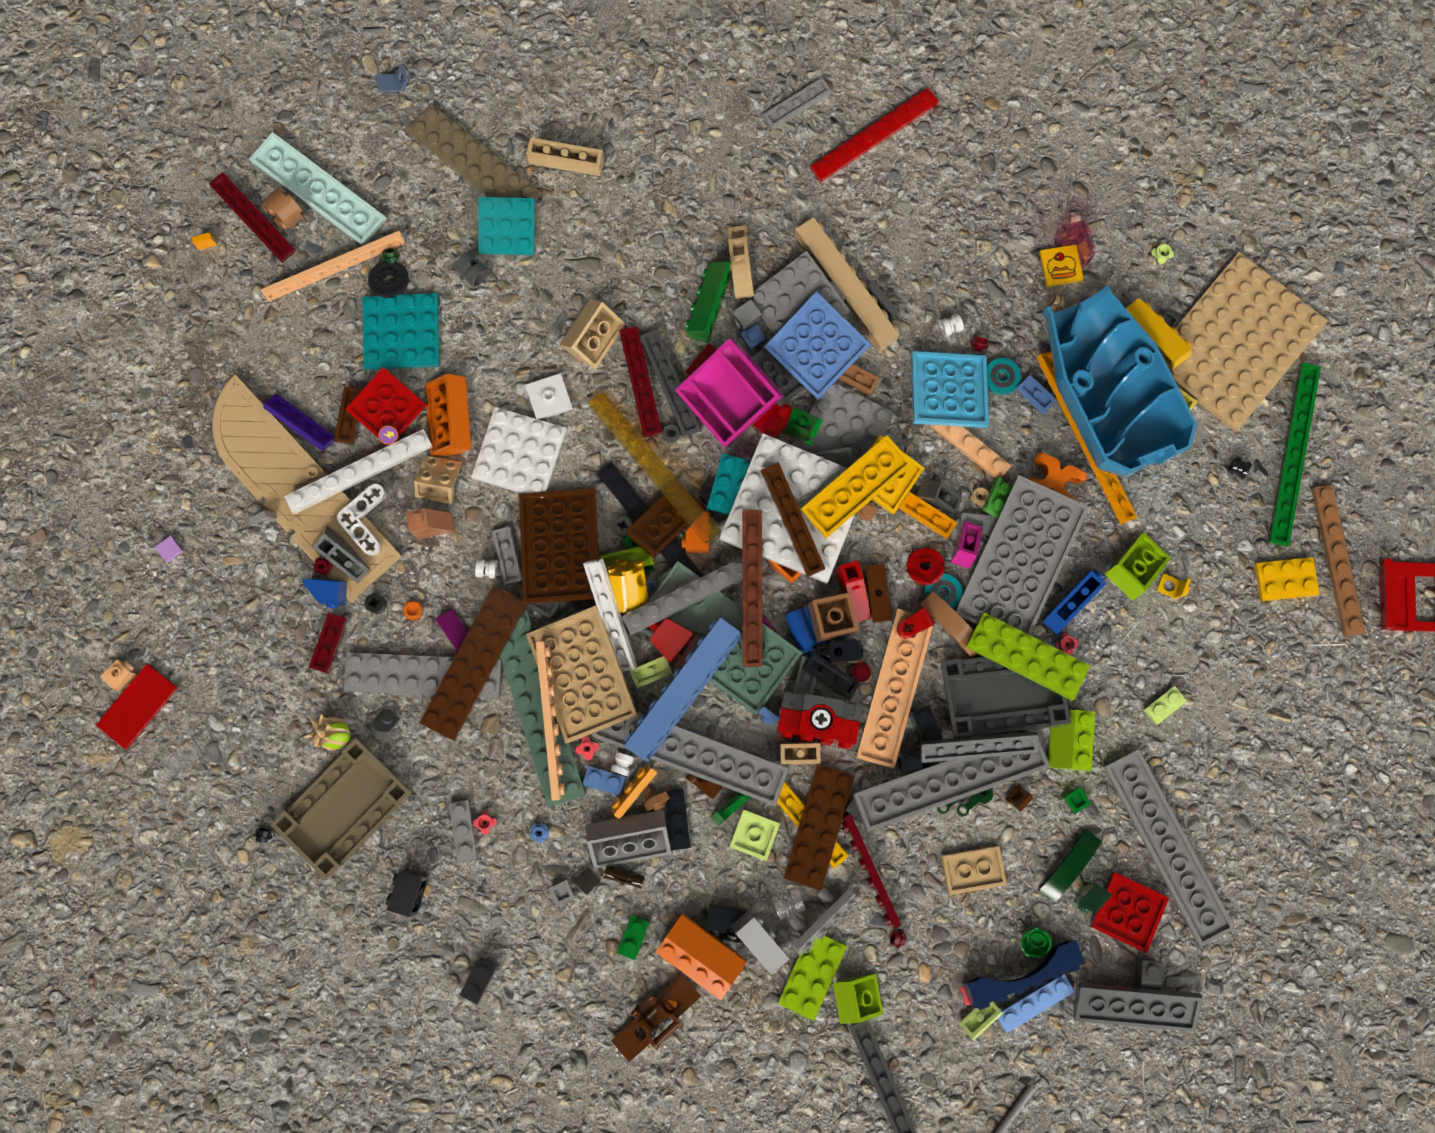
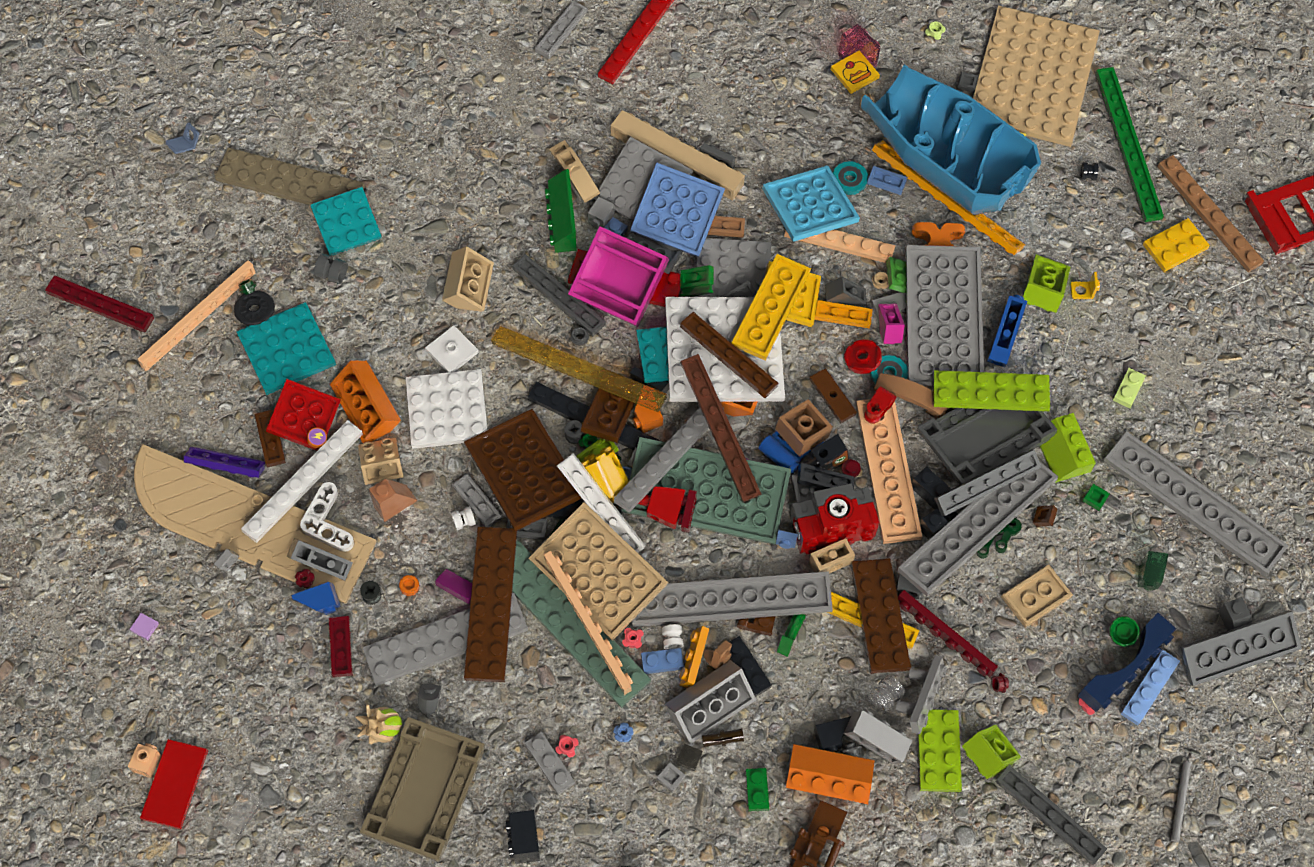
camera: 25 degrees left, 15 degrees down
(204, 241) = (61, 340): light orange tile -> none
(262, 835) = (354, 849): black plate -> none
(283, 208) = (127, 283): medium nougat brick -> none
(317, 189) = (152, 256): light aqua plate -> none
(565, 156) = (374, 144): tan brick -> none
(640, 382) = (531, 304): dark red plate -> none
(651, 672) = (660, 546): yellowish green plate -> none
(683, 690) = (700, 541): medium blue brick -> none
(754, 835) = (825, 648): yellowish green plate -> none
(852, 582) = (802, 388): red slope -> none
(868, 512) = (788, 332): medium nougat plate -> none
(951, 325) = (787, 151): white wheel -> none
(979, 344) = (817, 158): dark red plate -> none
(980, 1020) = (1110, 721): yellowish green plate -> none
(1066, 638) = (1023, 368): coral plate -> none
(1070, 867) = (1120, 557): dark green slope -> none
(1130, 912) = (1192, 572): red plate -> none
(1169, 343) = (985, 94): yellow brick -> none

